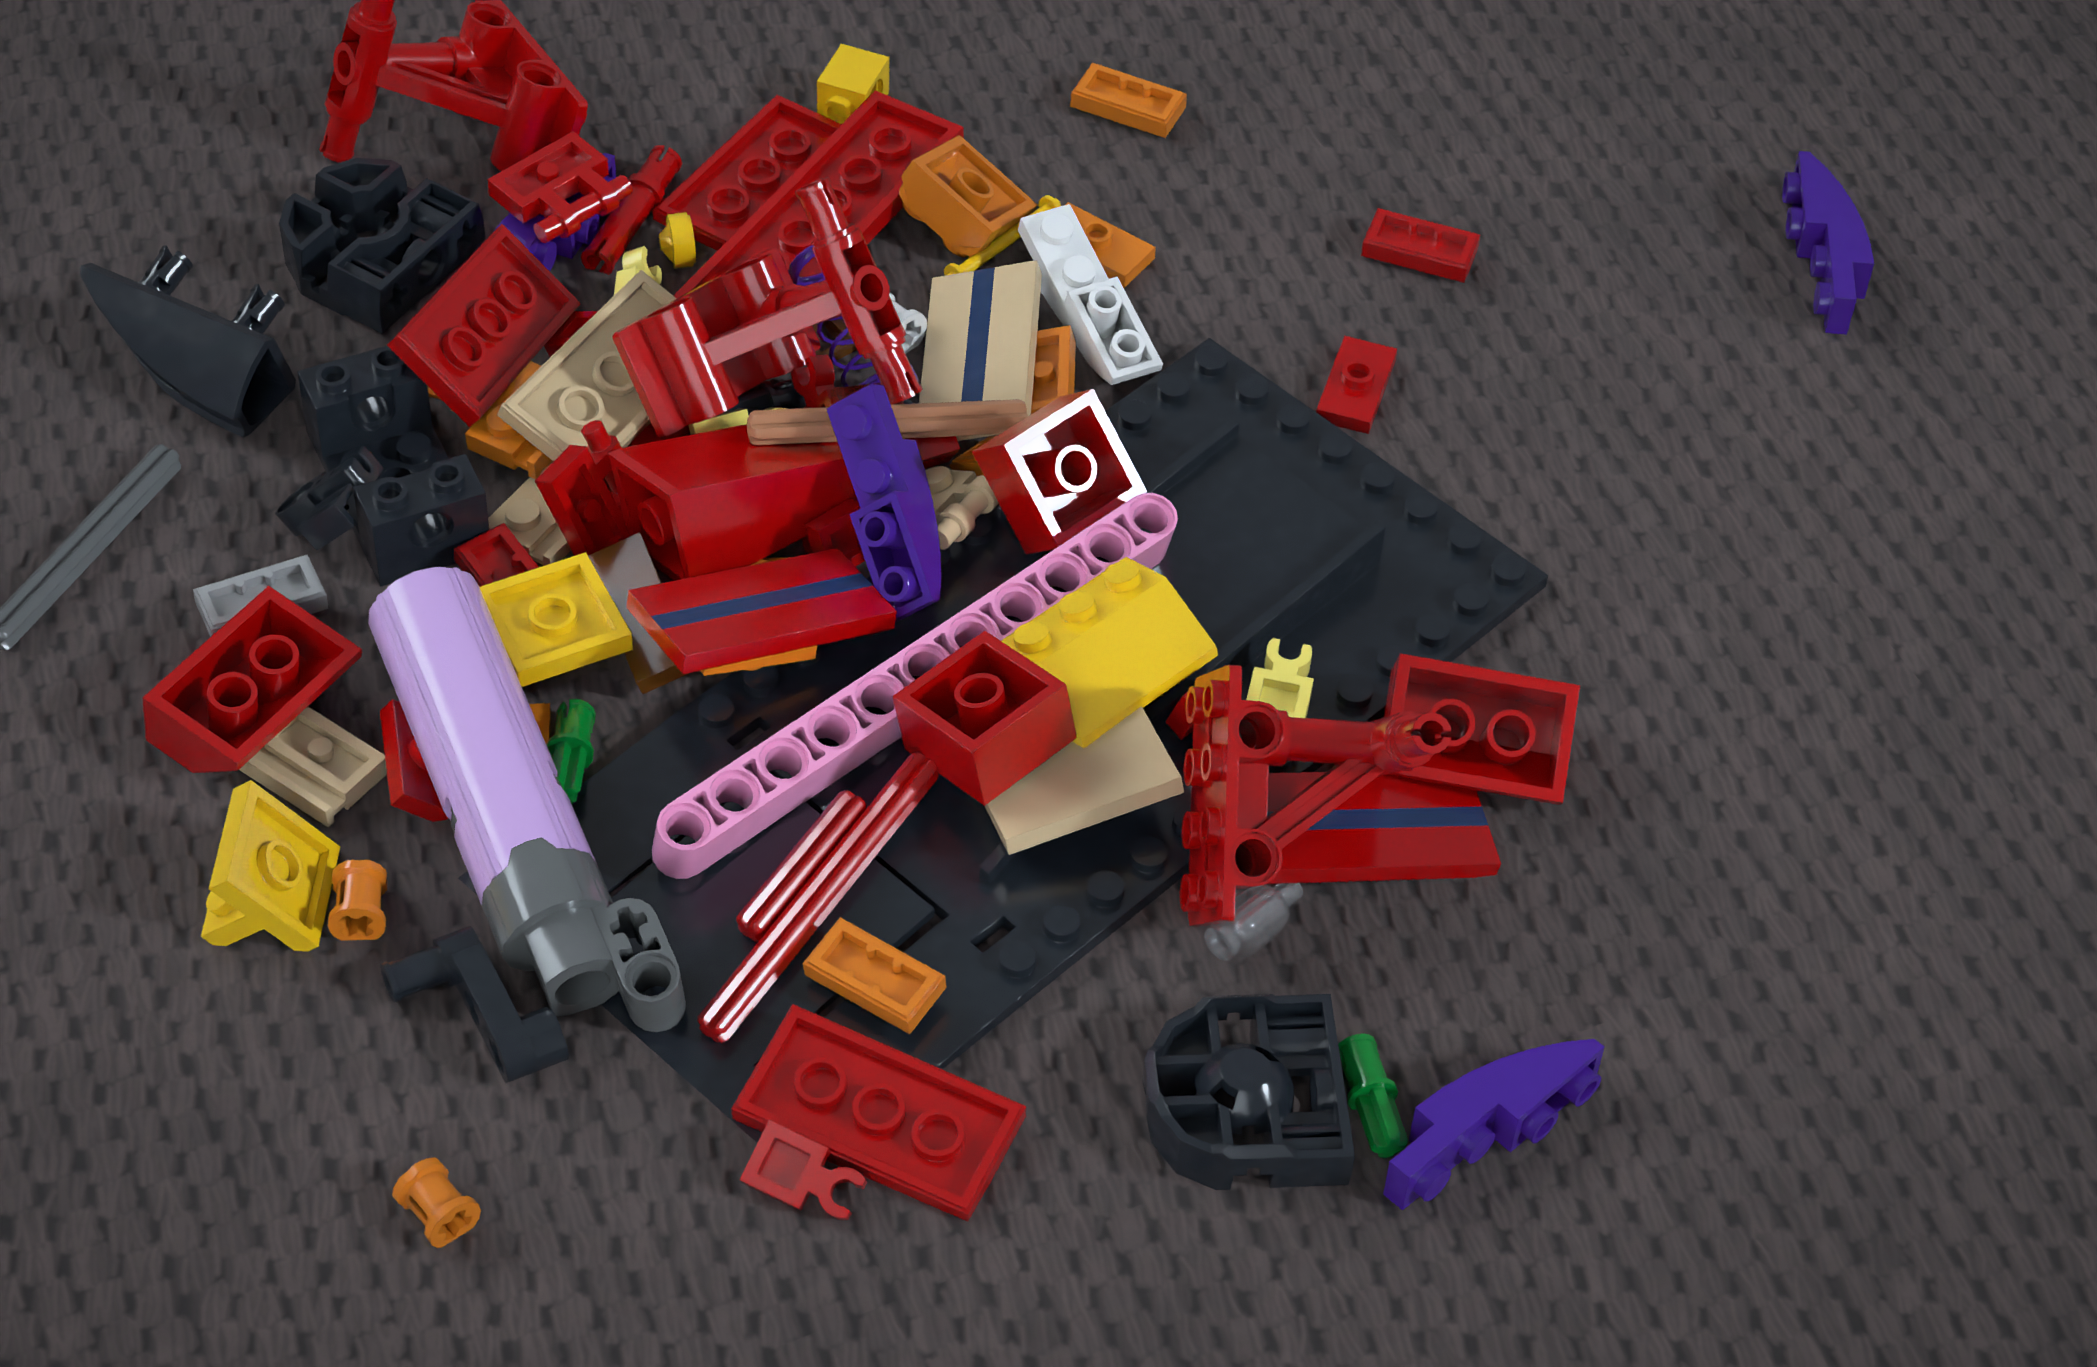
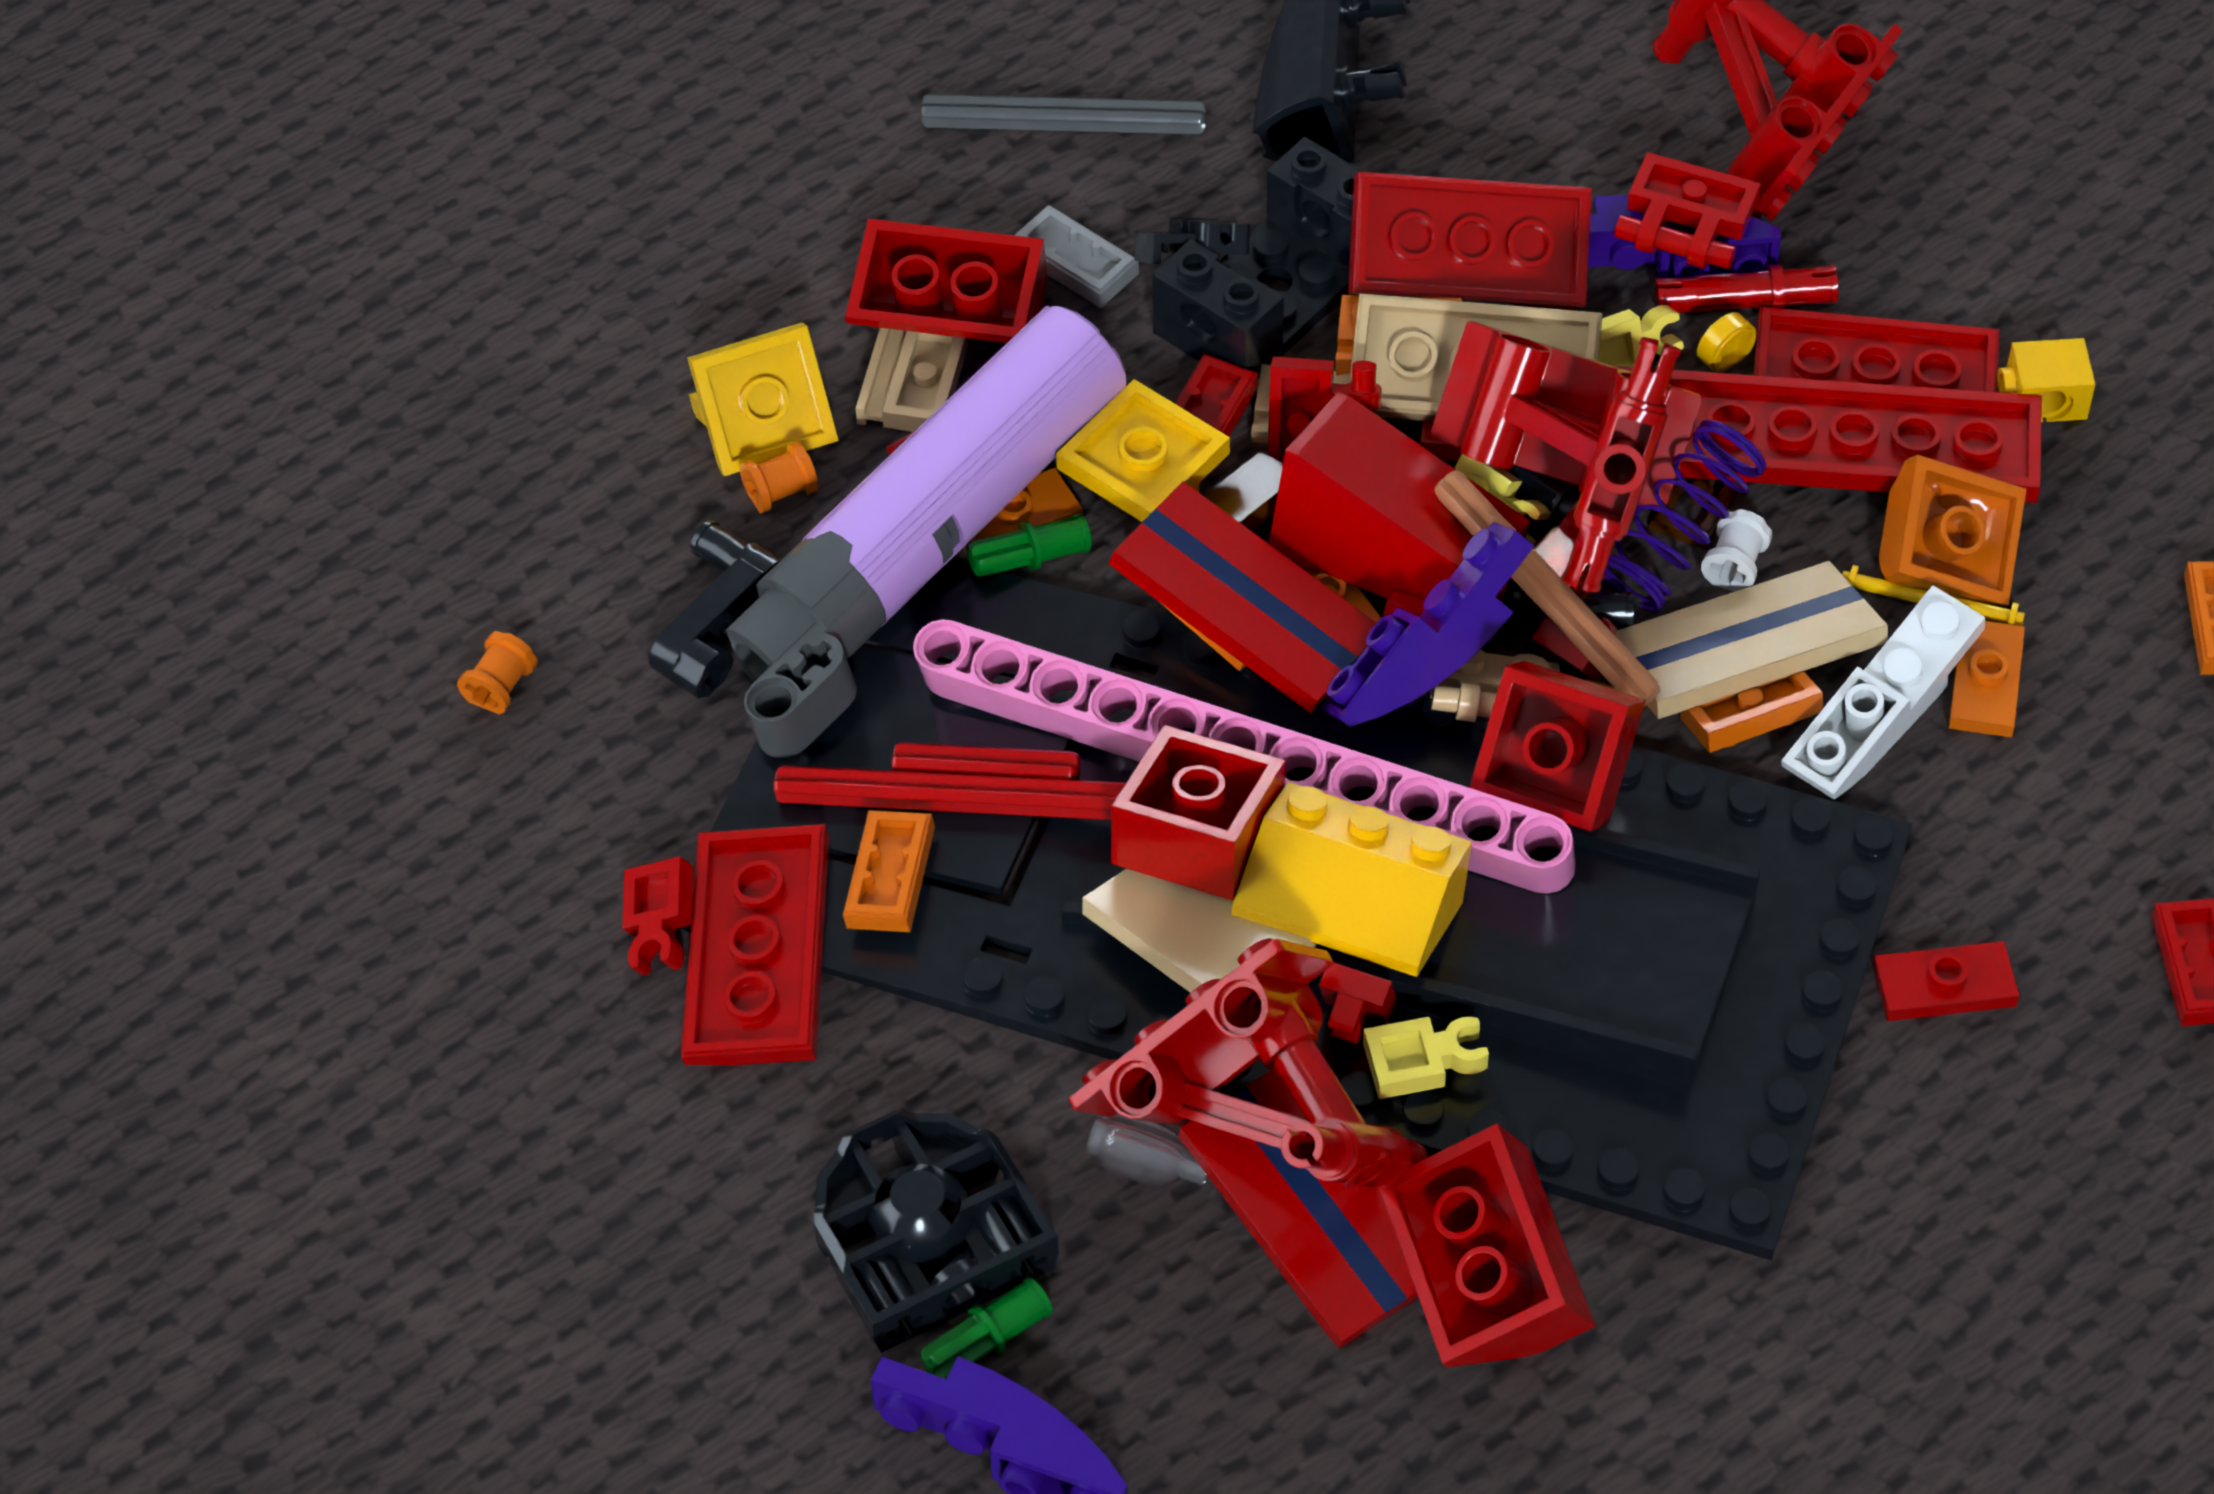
camera: 70 degrees right, 5 degrees up
(380, 274) = (1524, 124): black connector -> none

